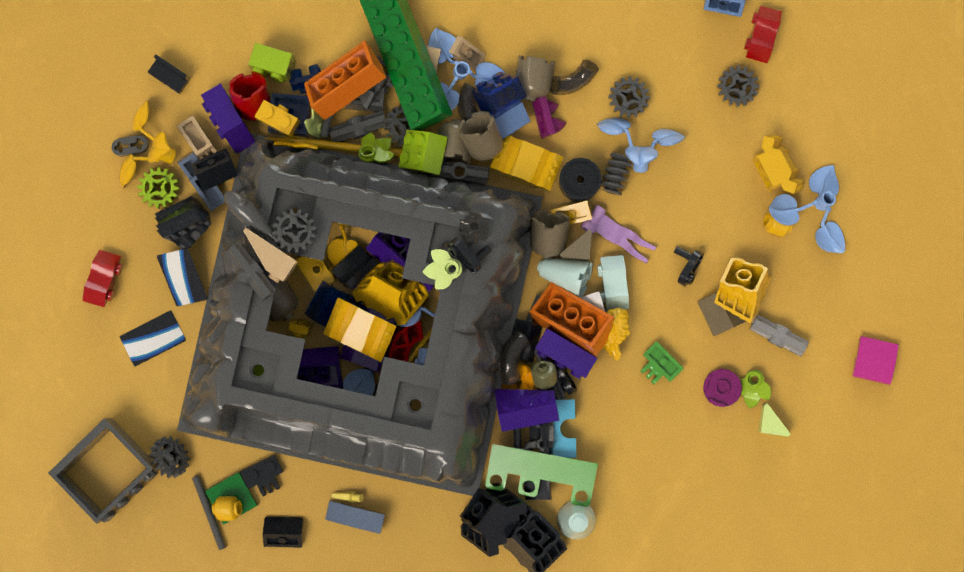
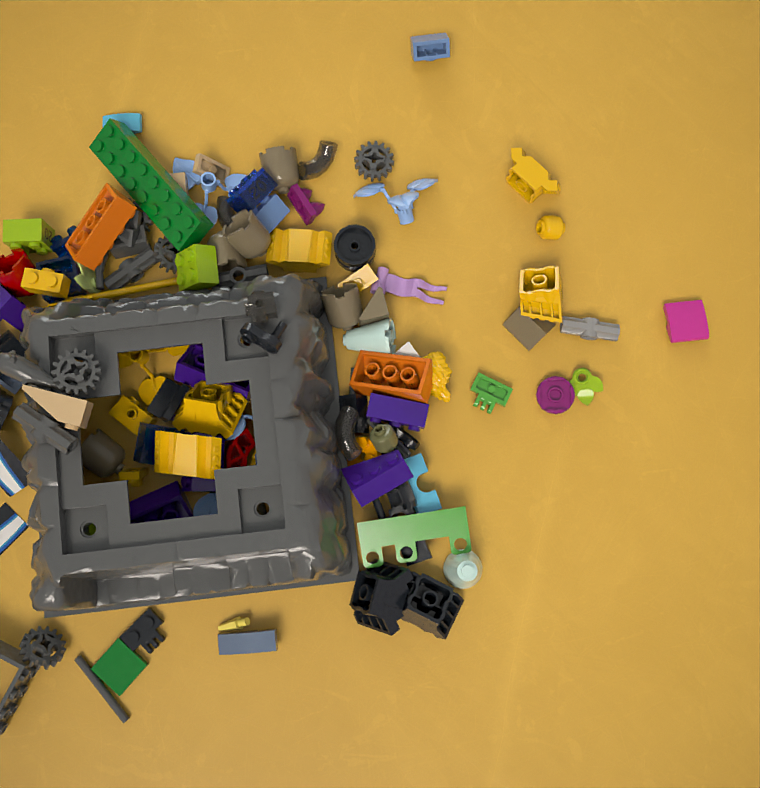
camera: 25 degrees left, 5 degrees down
(227, 508) = (116, 679): yellow head -> none
(283, 532) = (180, 682): black panel -> none
(376, 148) = (152, 284): lime plate -> none
(440, 269) = (241, 360): yellowish green plate -> none
(614, 282) = (419, 330): light aqua brick -> none
(615, 174) = (385, 233): dark grey piece -> none
(687, 275) = (486, 286): black piece -> none
(734, 78) = (469, 111): dark grey gear -> none
(763, 34) = (475, 66): red brick -> none
(770, 423) = (613, 412): yellowish green slope -> none
(824, 183) = (578, 178): light blue plant -> none

